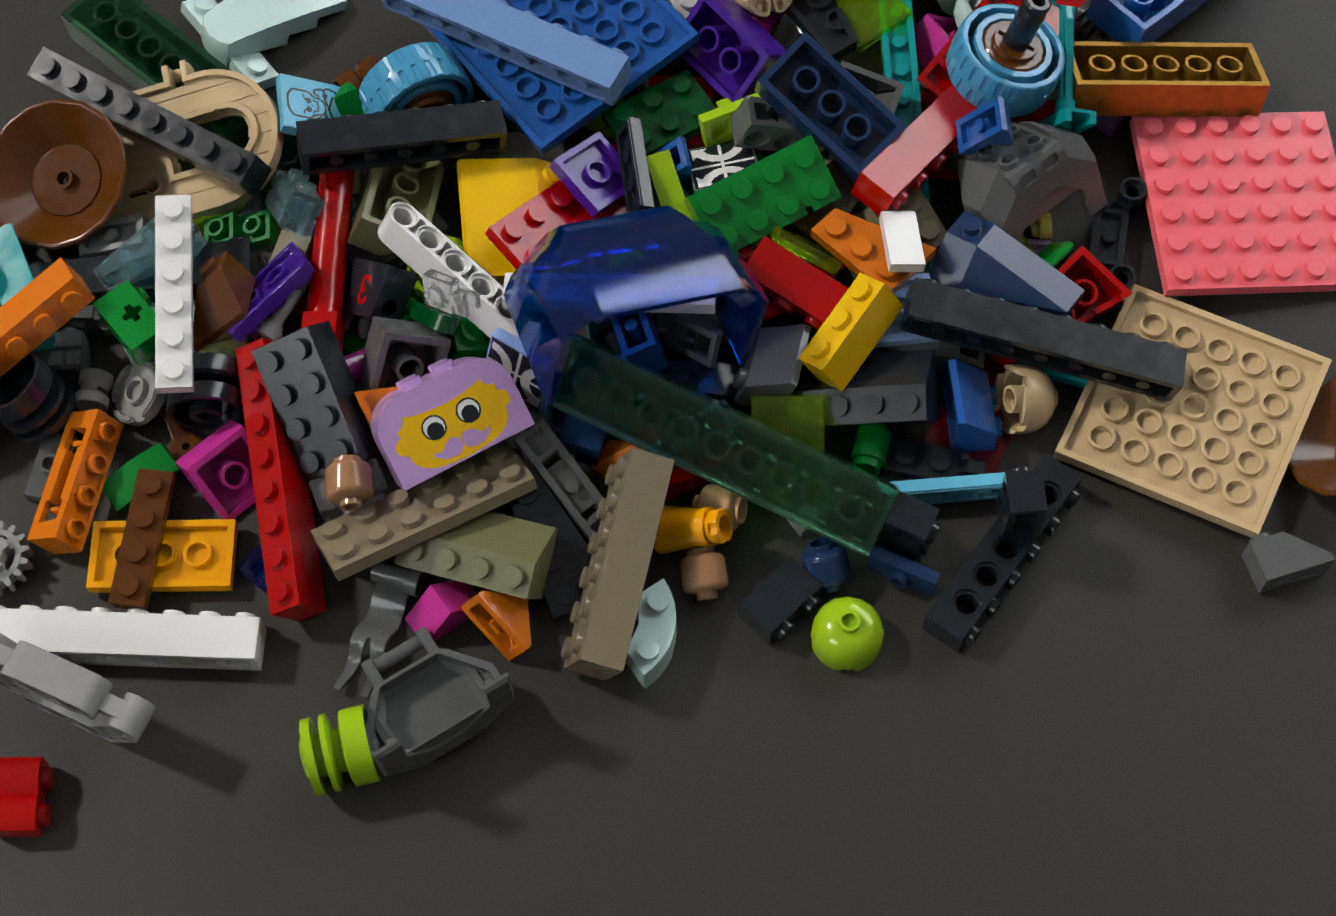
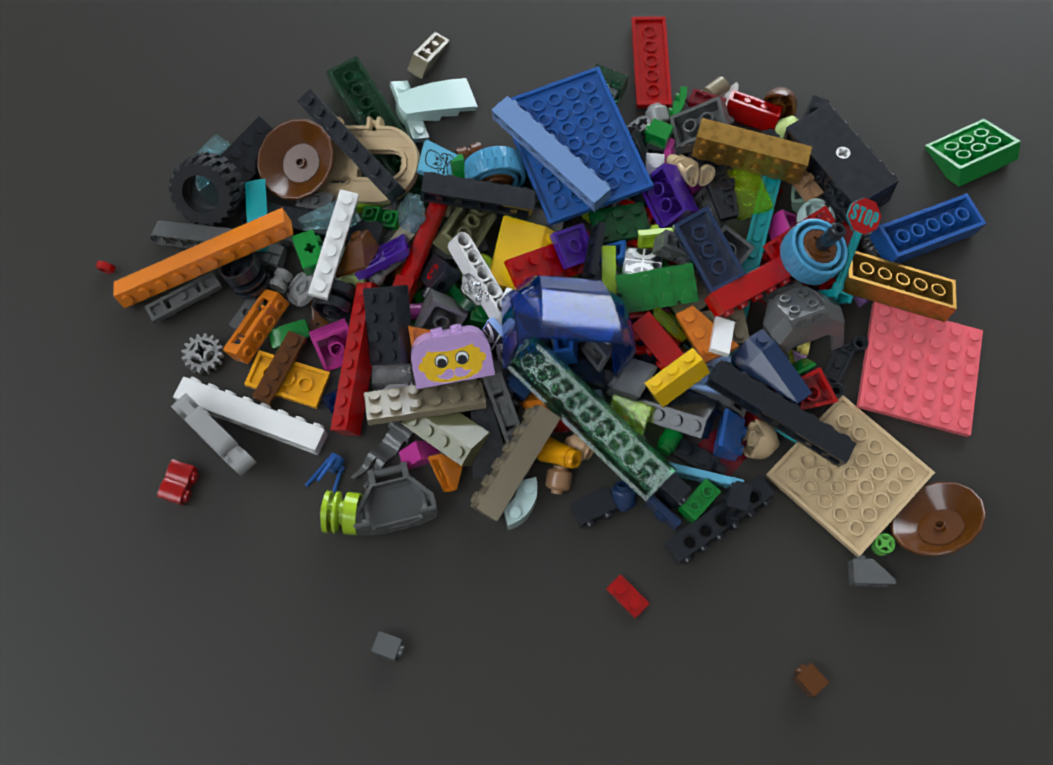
camera: 15 degrees right, 5 degrees up
(293, 677) = (331, 464): none -> blue plant
(349, 482) = (390, 374): medium nougat head -> none
(847, 634) = (622, 536): lime cylinder -> none
(891, 732) = (627, 596): none -> red plate
(957, 532) = (698, 501): none -> green brick
(984, 126) = (788, 287): blue slope -> none
(1250, 767) = (809, 679): none -> reddish brown brick
(1294, 498) = (887, 544): none -> bright green wheel

